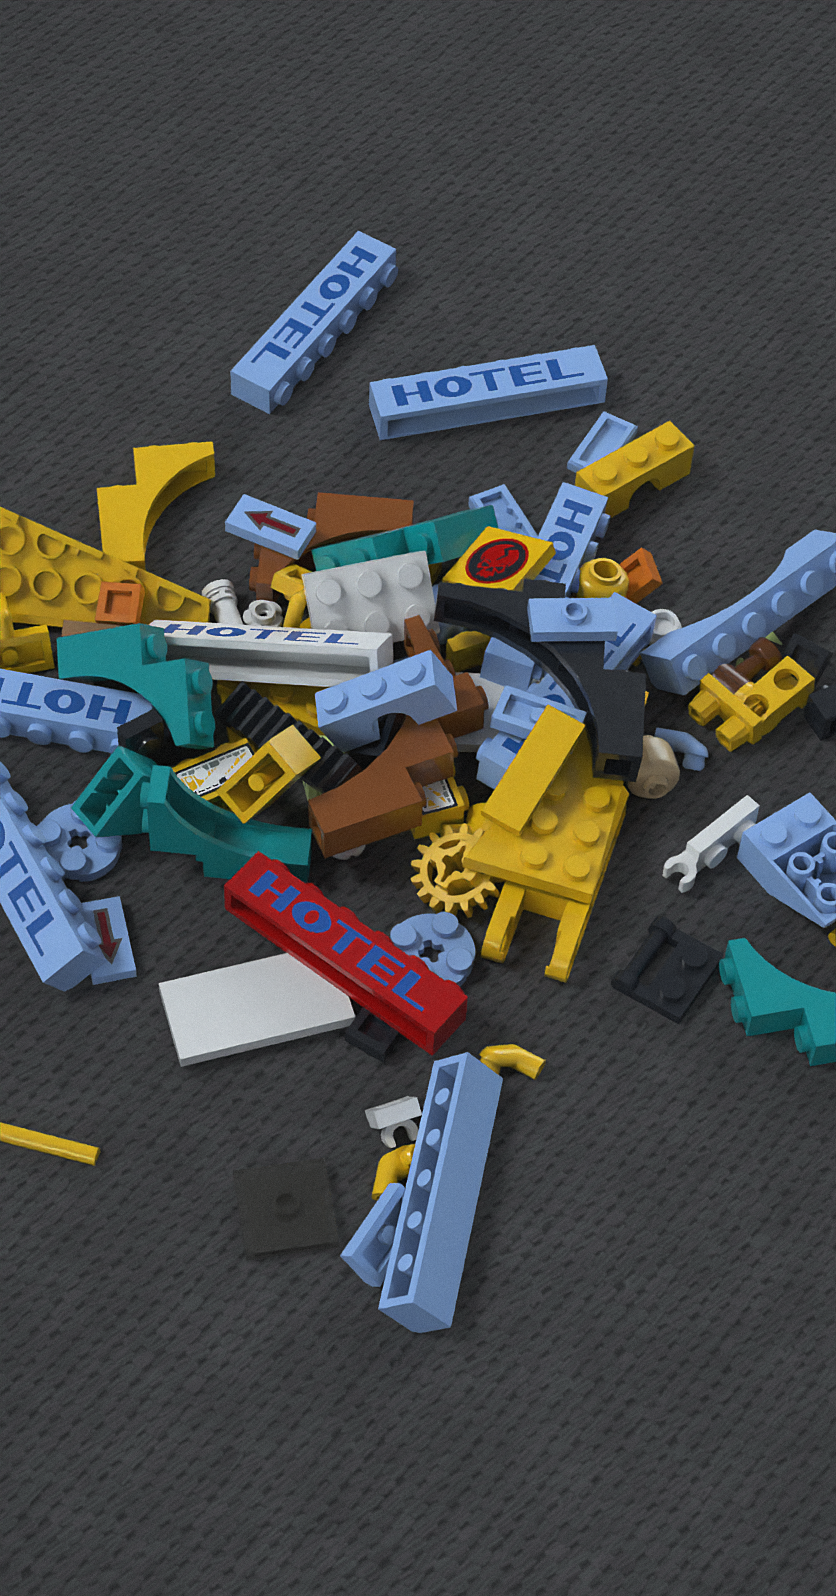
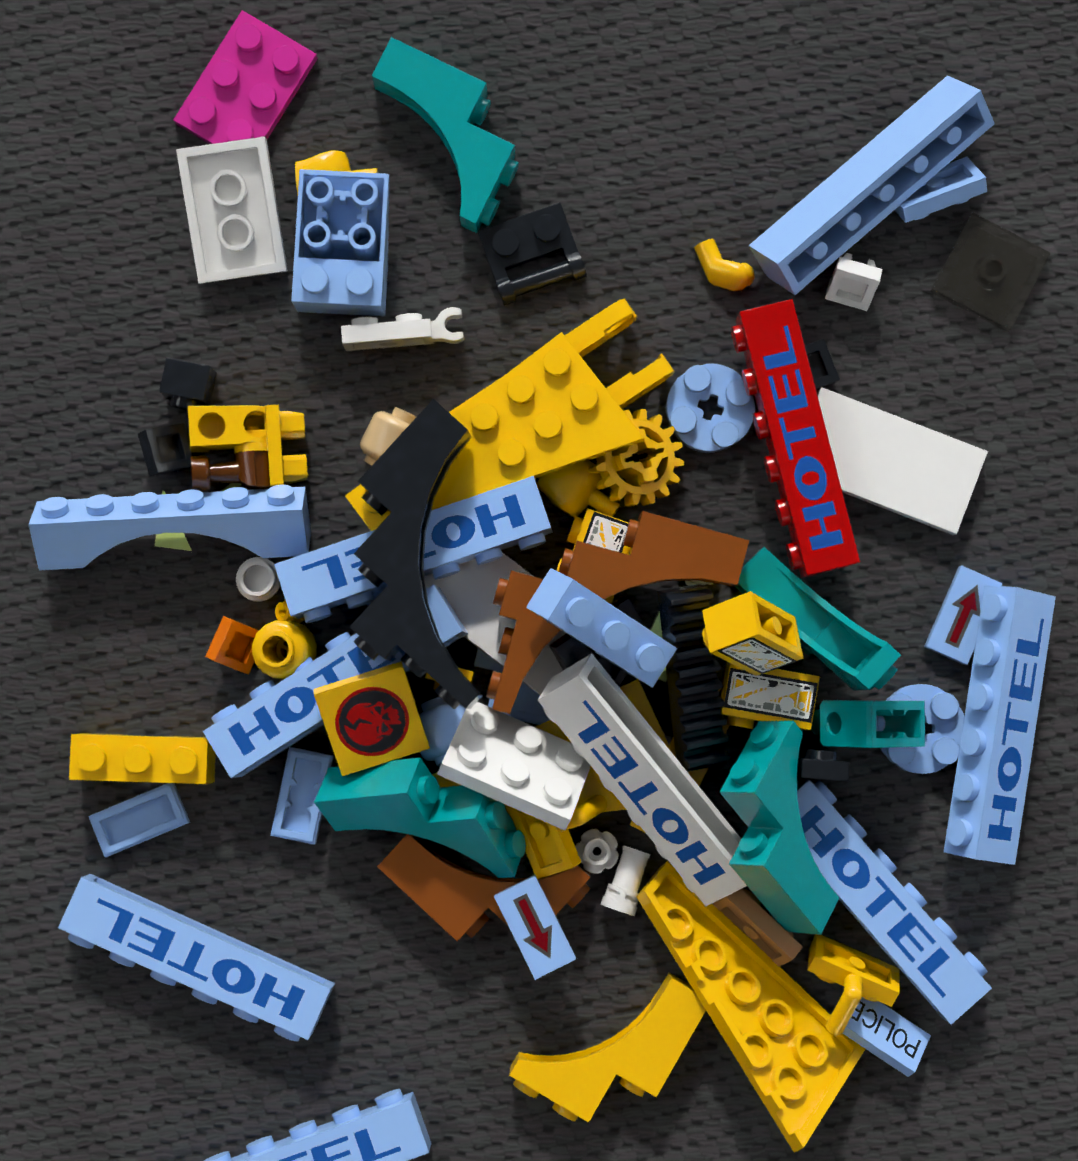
camera: 140 degrees left, 30 degrees up
(119, 603) = (732, 938): orange plate -> none
(392, 1169) = (885, 245): yellow arm -> none
(520, 710) = (480, 516): light blue plate -> none
(533, 770) = (528, 464): yellow tile -> none
(572, 619) = (381, 577): light blue plate -> none
(685, 743) = (337, 447): light blue arm -> none

